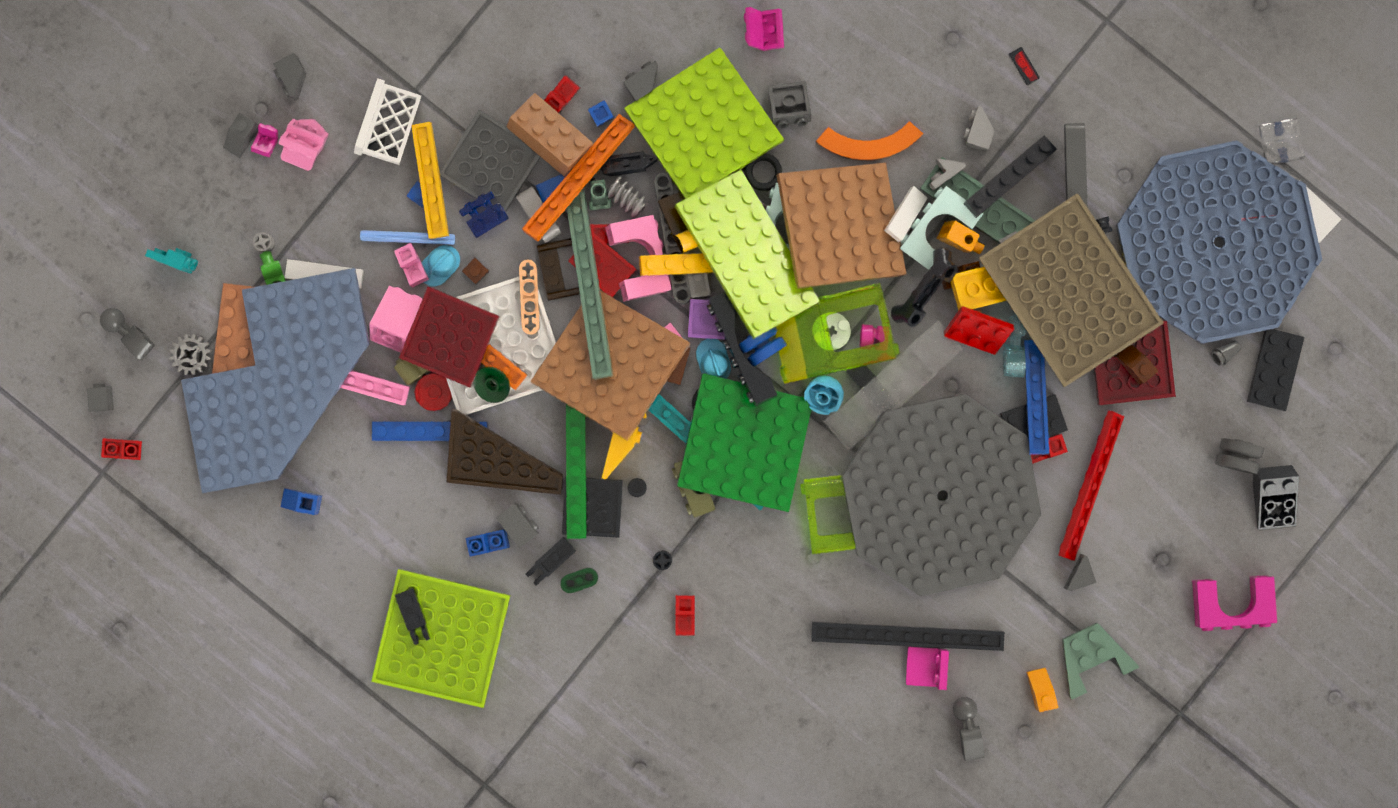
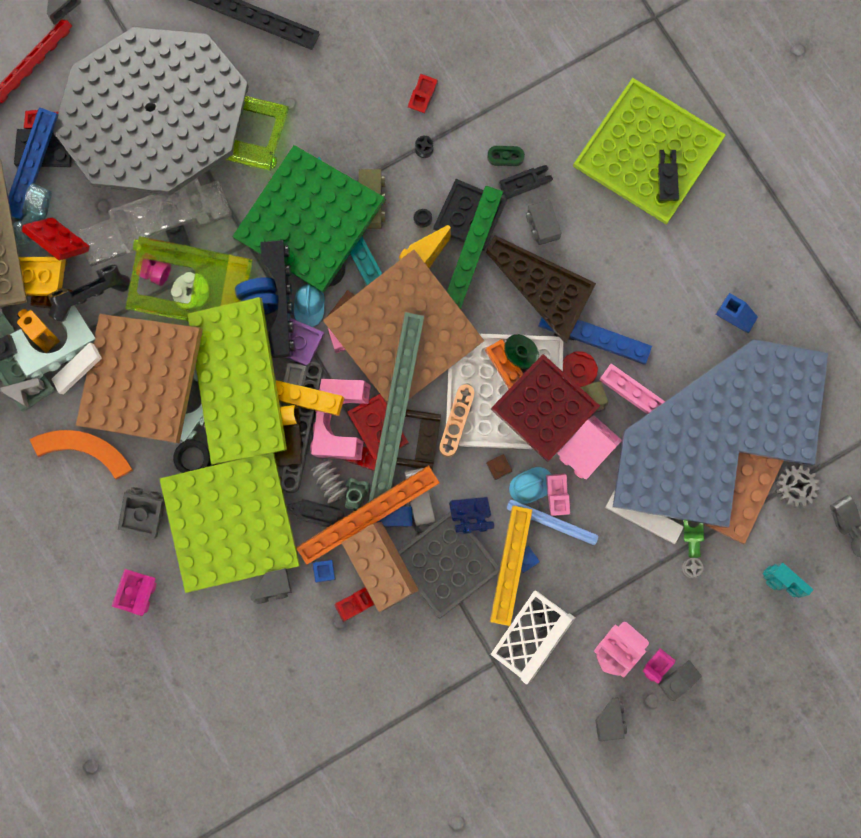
camera: 160 degrees left, 10 degrees down
(487, 542) = (577, 219): blue slope -> none
(824, 395) = (219, 233): medium azure cylinder -> none

